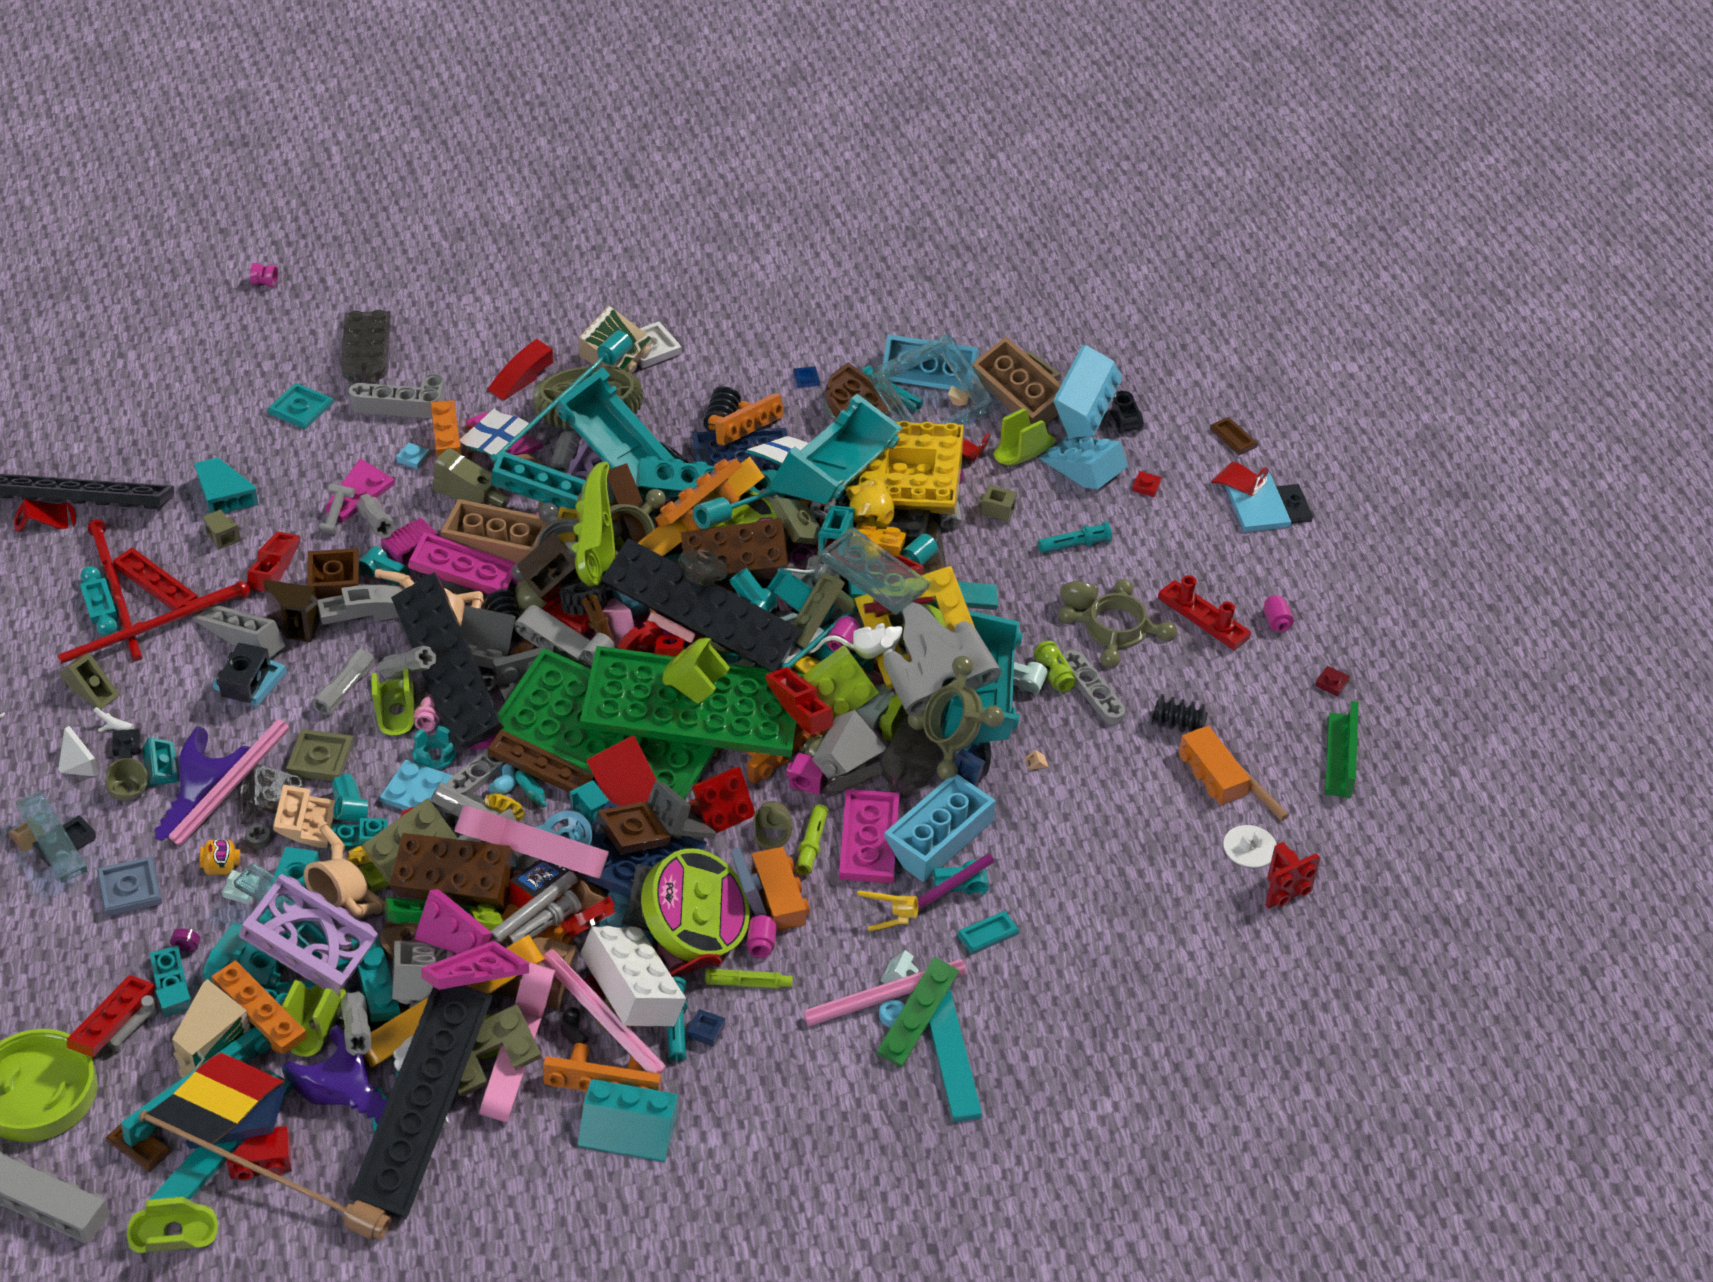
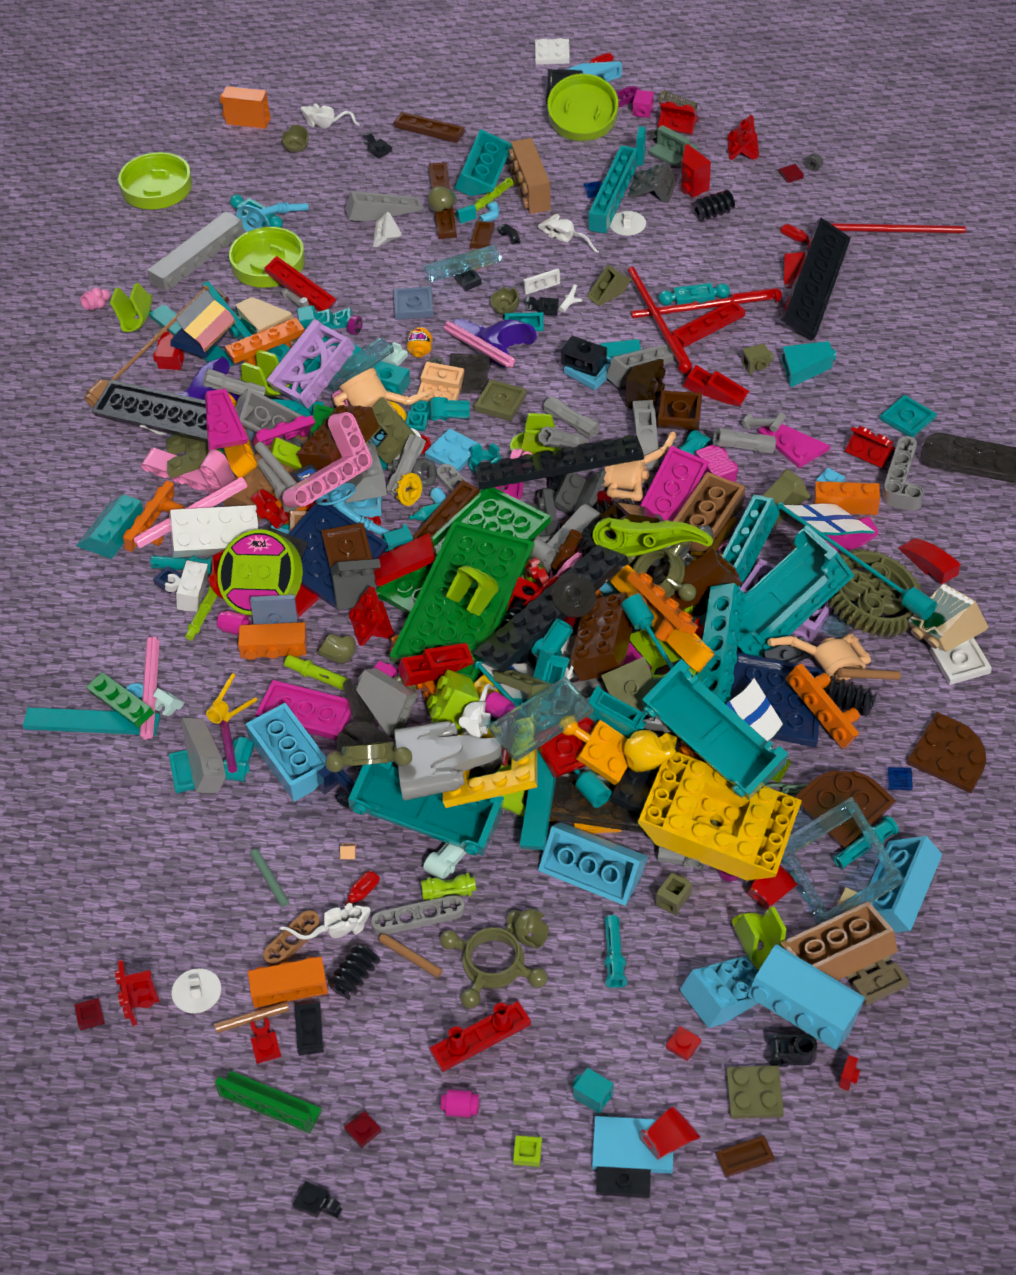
camera: 110 degrees right, 5 degrees up
(207, 657) = (621, 347): none -> teal tile
(360, 423) = (870, 447): none -> red bracket
(675, 422) = (831, 653): none -> light nougat piece
(692, 398) = (868, 674): none -> medium nougat bar
(717, 991) = (189, 586): none -> white brick
(764, 347) = (950, 753): none -> reddish brown plate
(975, 904) = (203, 756): none -> light grey slope
(987, 555) = (592, 863): none -> medium azure slope
(1078, 738) = (362, 887): none -> red piece
(1096, 818) = (269, 878): none -> sand green bar
(1132, 378) = (850, 1073): none -> red plate
(1132, 738) = (339, 922): none -> white animal
(1138, 685) = (410, 955): none -> medium nougat bar
(1159, 771) = (274, 946): none -> medium nougat beam
(1172, 436) = (754, 1092): none -> olive plate
(1223, 528) = (592, 1090): none -> teal brick
(1254, 739) = (309, 1029): none -> black plate
(1283, 771) = (265, 1044): none -> red plate
(1298, 564) = (527, 1151): none -> lime plate
(1321, 922) = (89, 1014): none -> dark red plate
(1415, 699) = (314, 1200): none -> black plate

